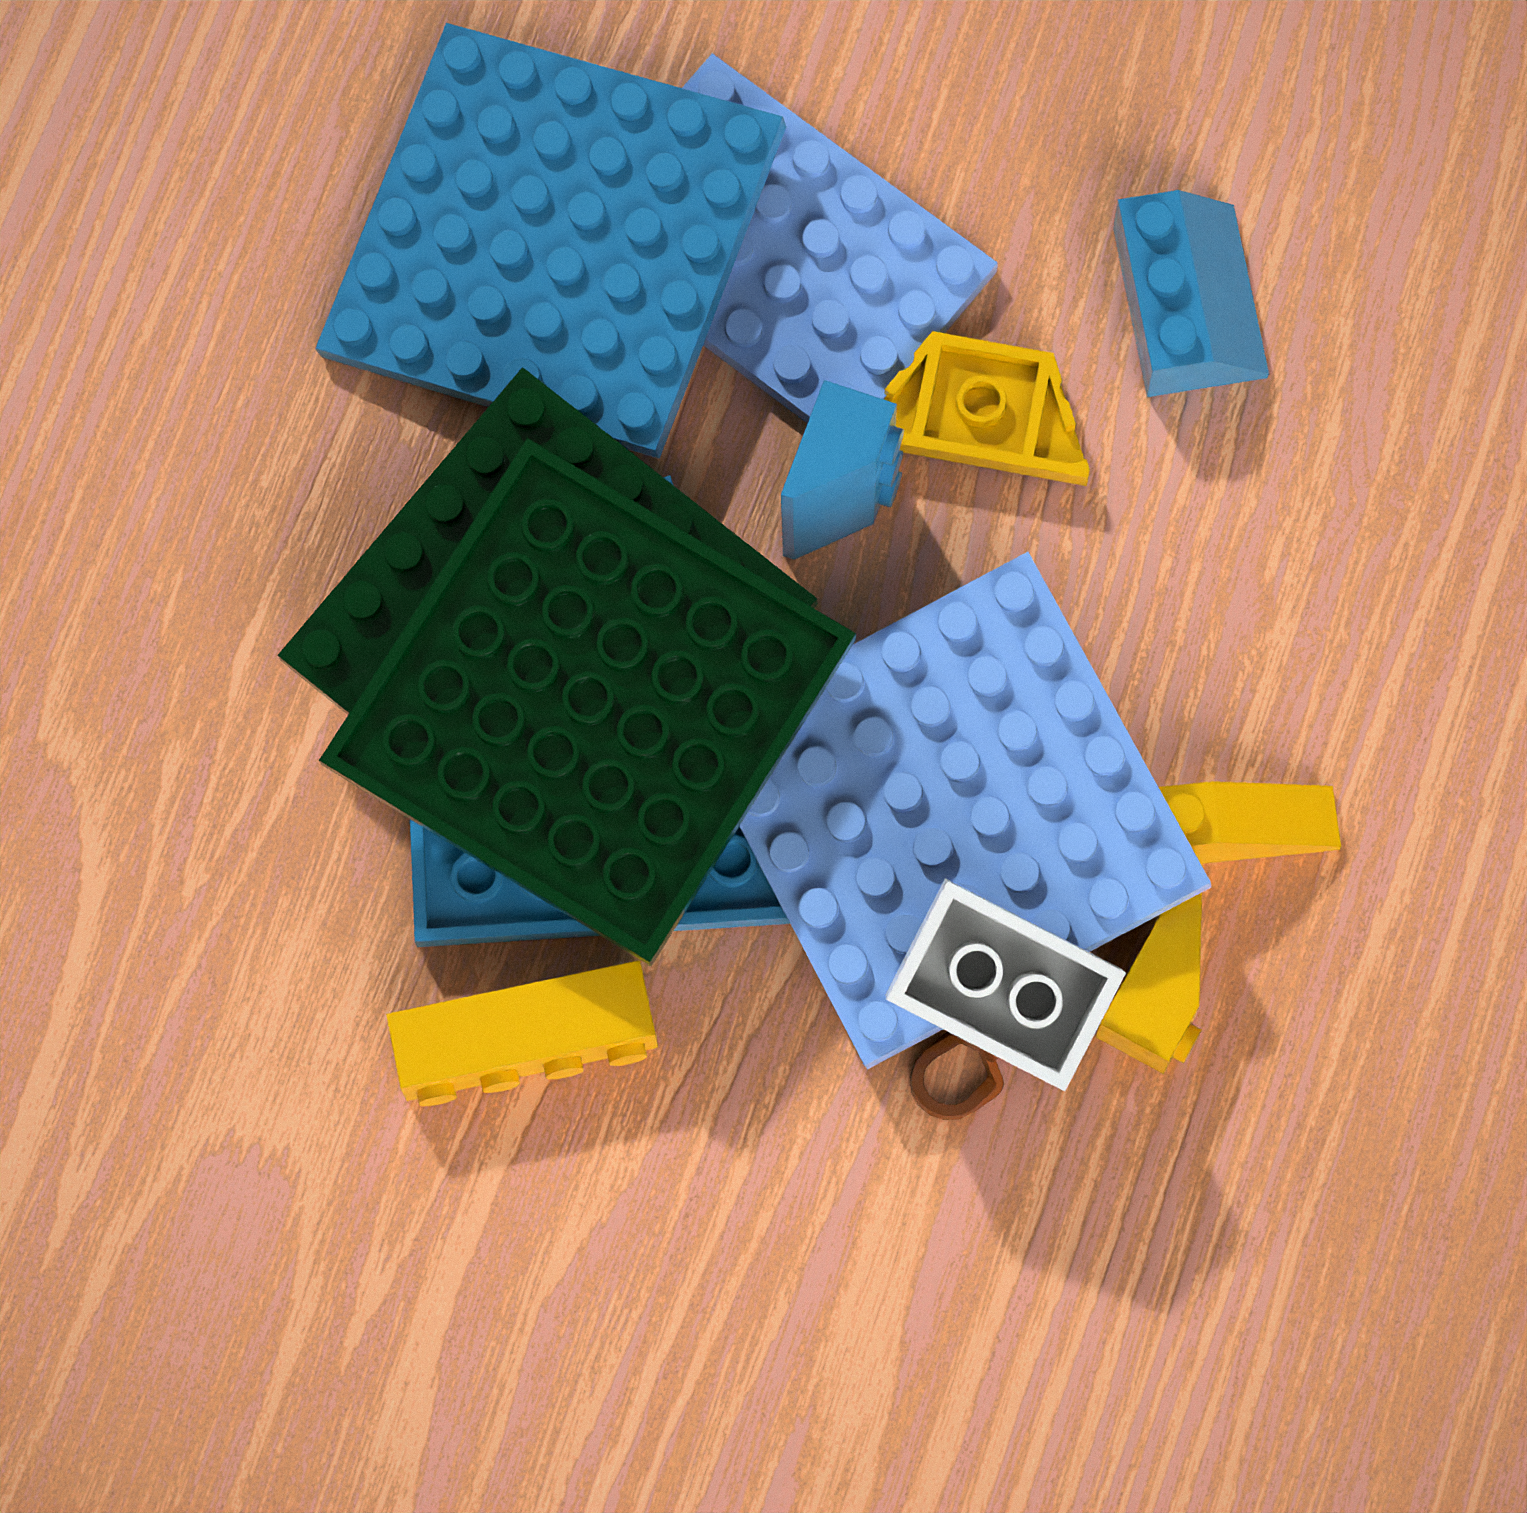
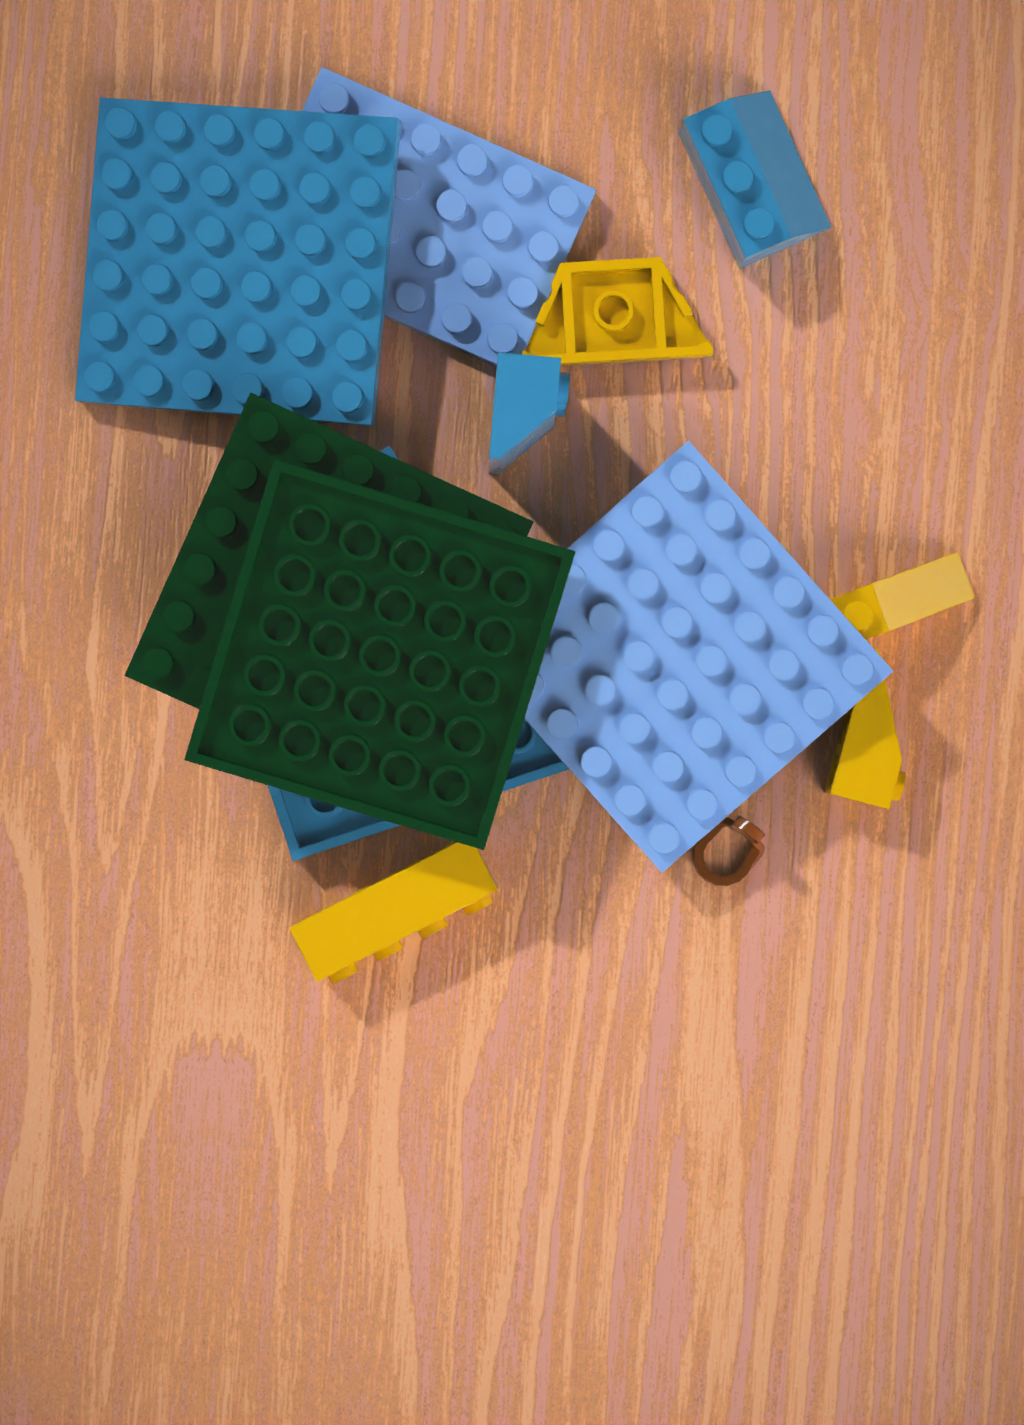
camera: 15 degrees left, 15 degrees up
(1005, 984) = (759, 799): white brick -> none

